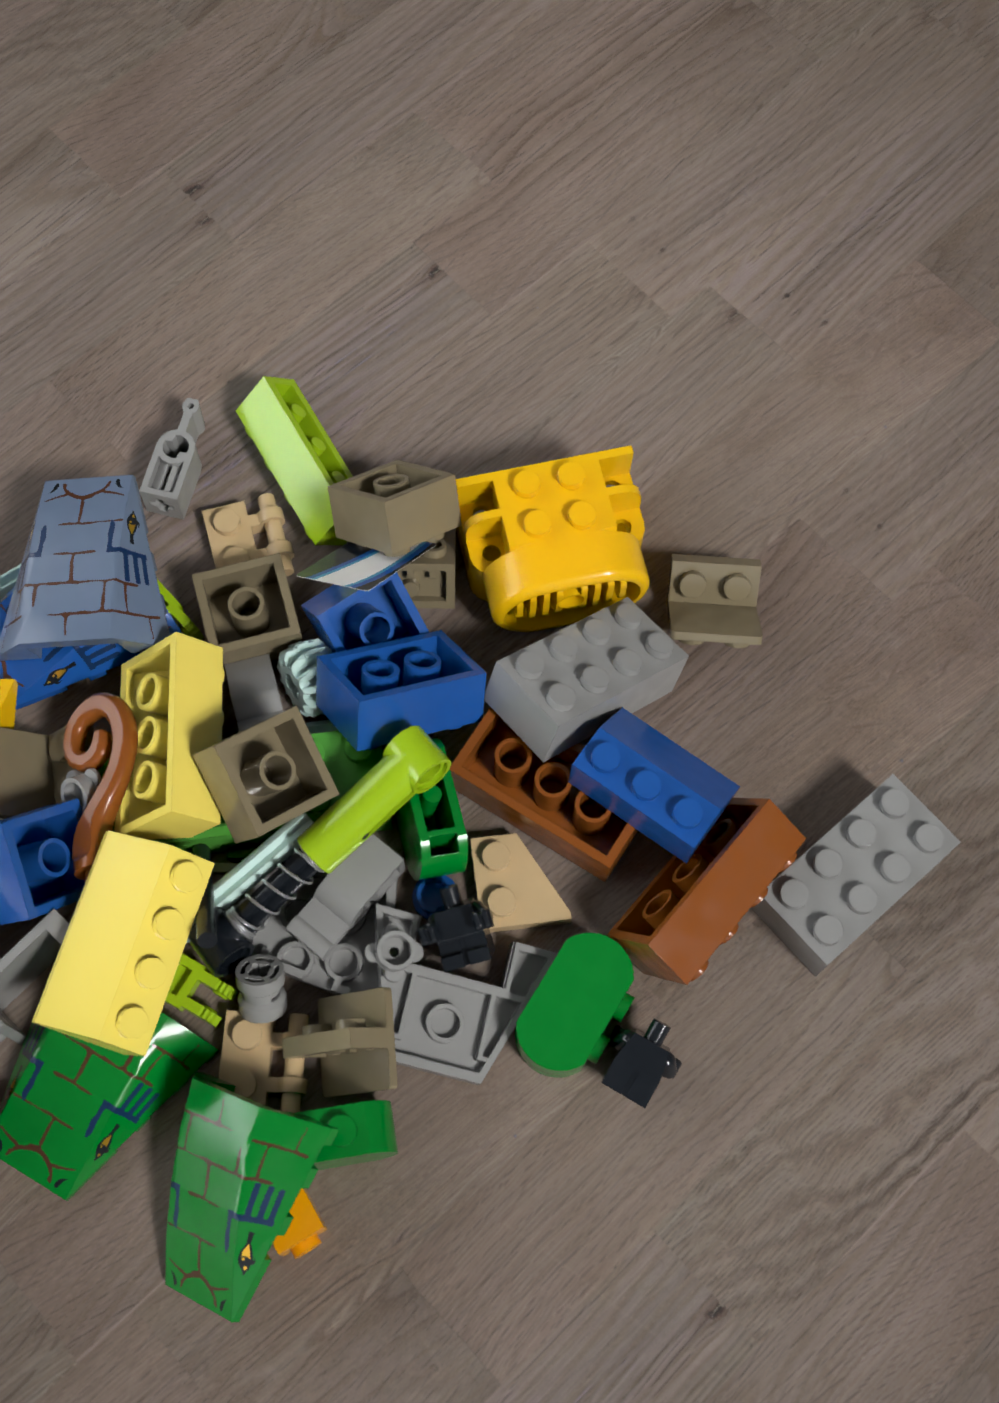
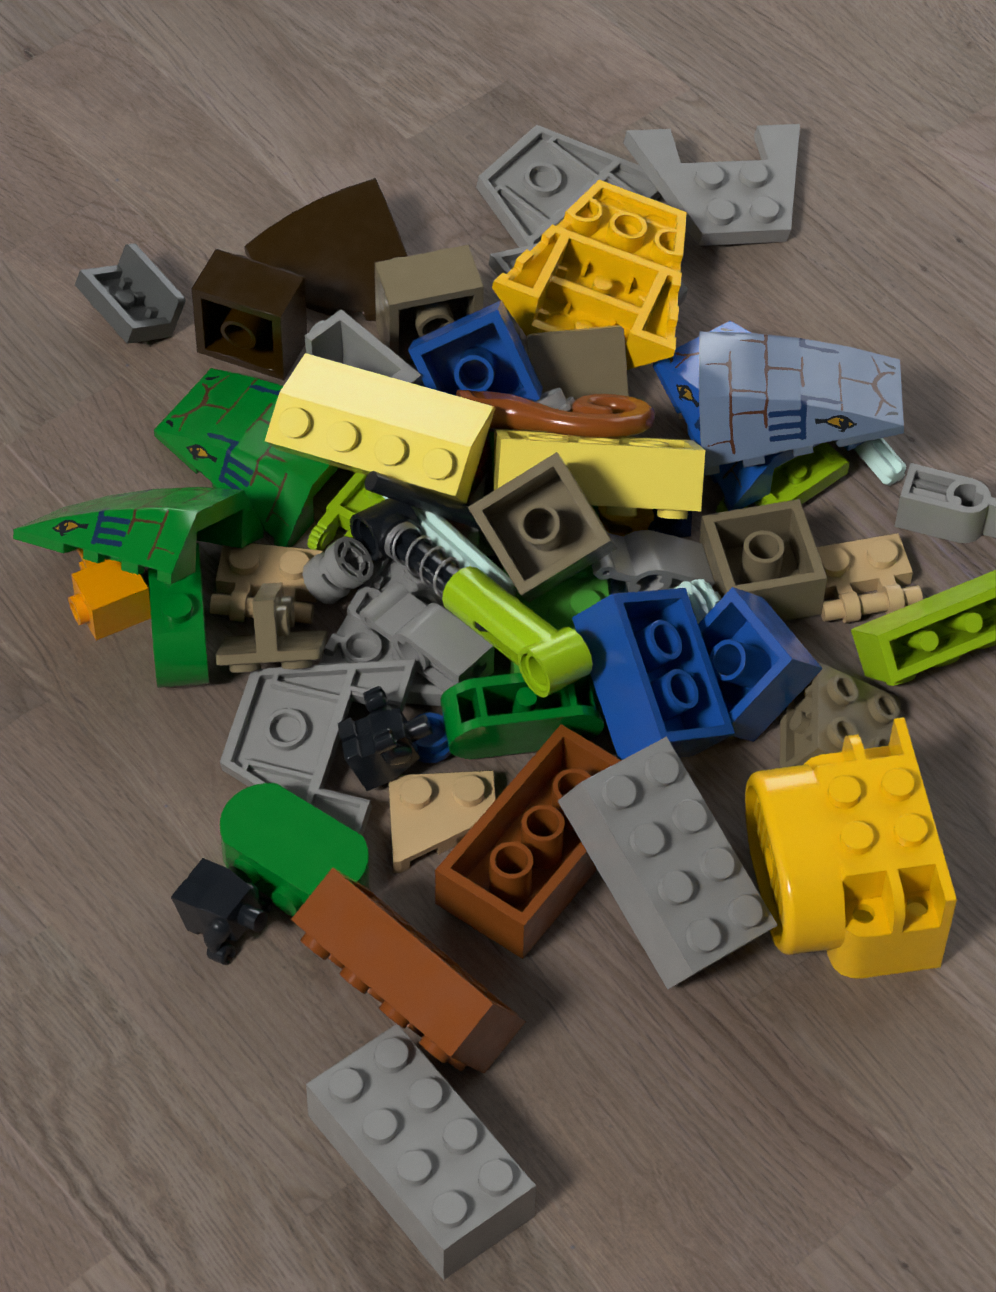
camera: 95 degrees right, 15 degrees down
(360, 566) = (806, 641): sticker -> none
(395, 507) = (875, 670): dark tan brick -> none
(407, 949) = (358, 654): light grey plate -> none
(652, 783) = (528, 905): blue slope -> none
(714, 600) = (773, 1034): dark tan bracket -> none

